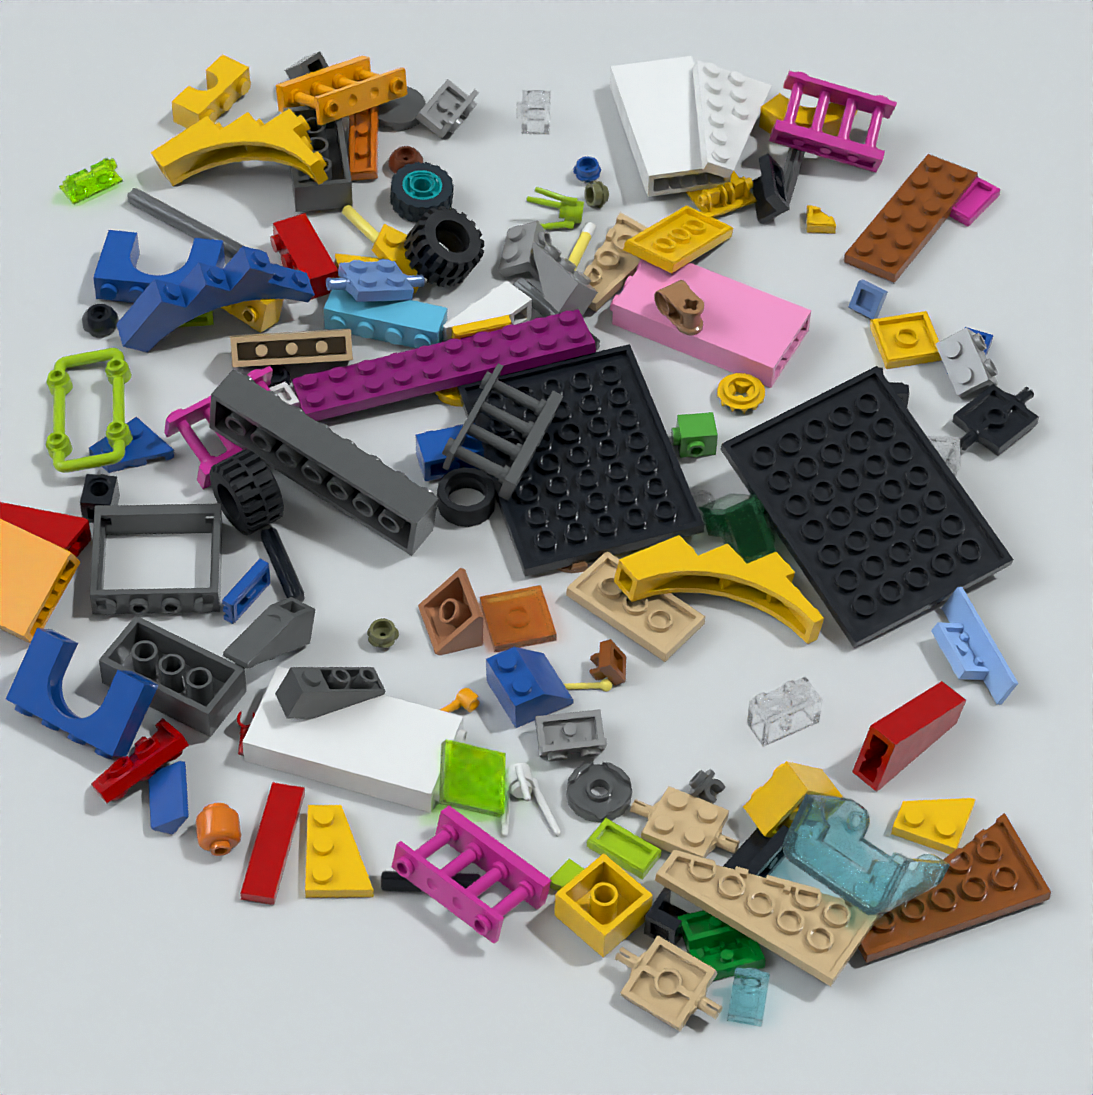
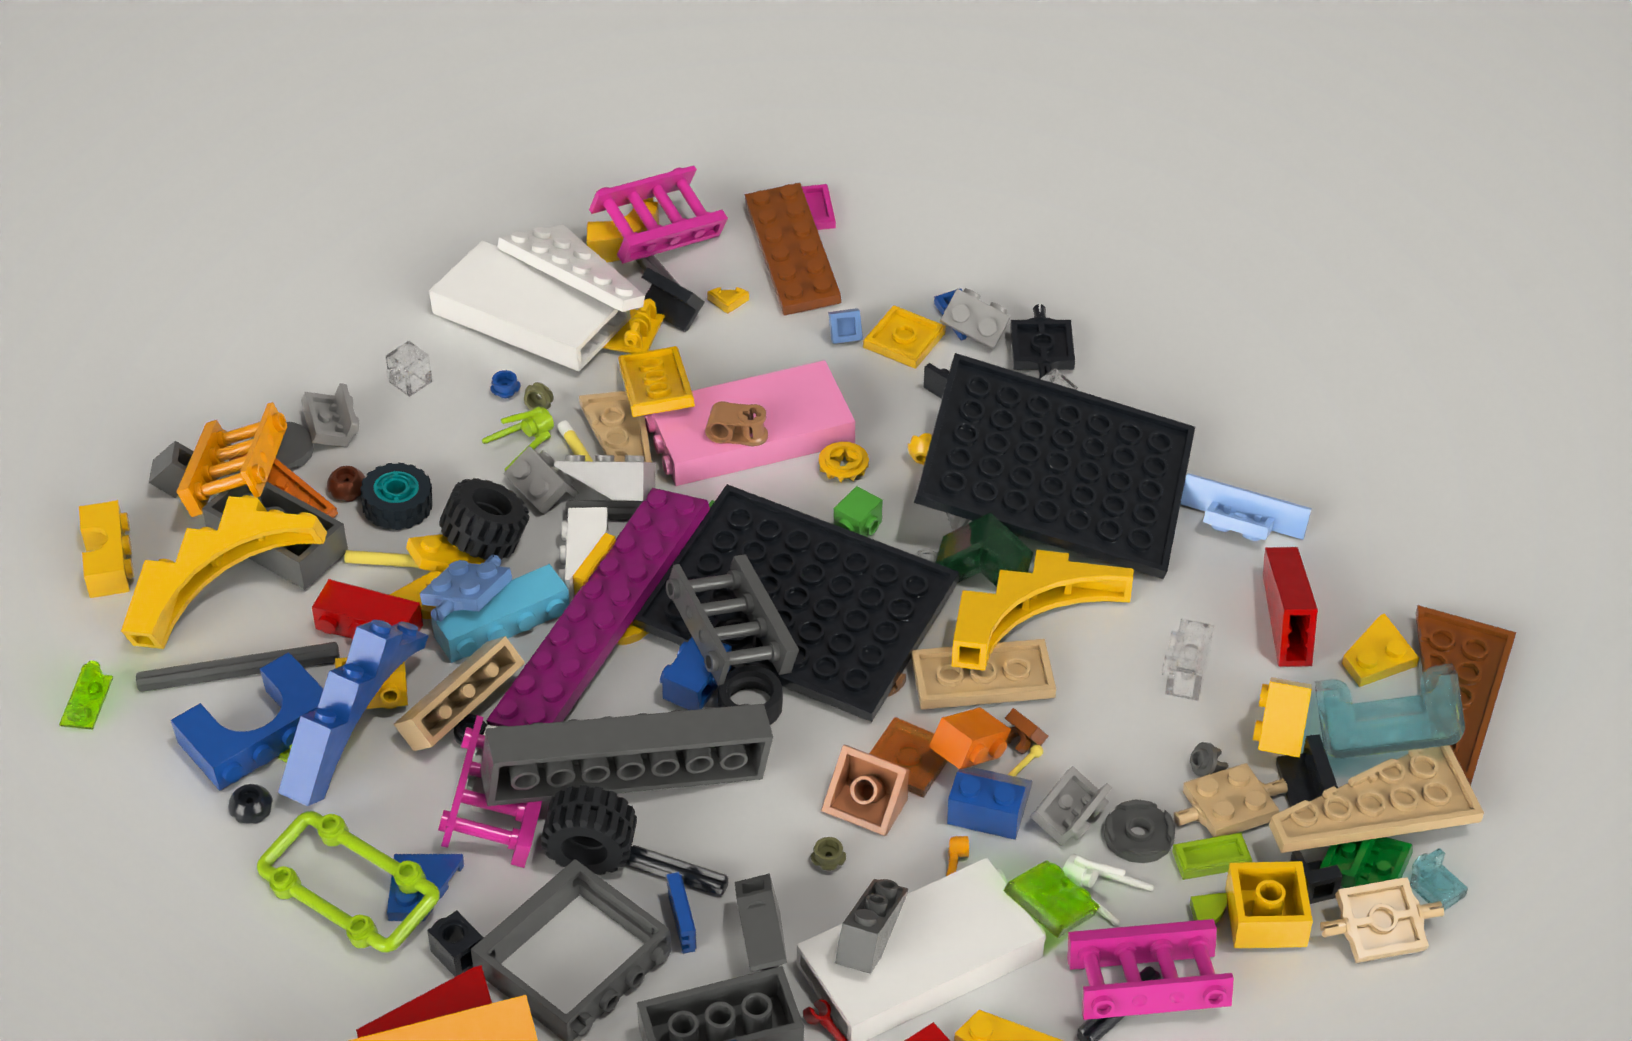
camera: 45 degrees left, 5 degrees down
(558, 635) = (970, 738): none -> orange brick

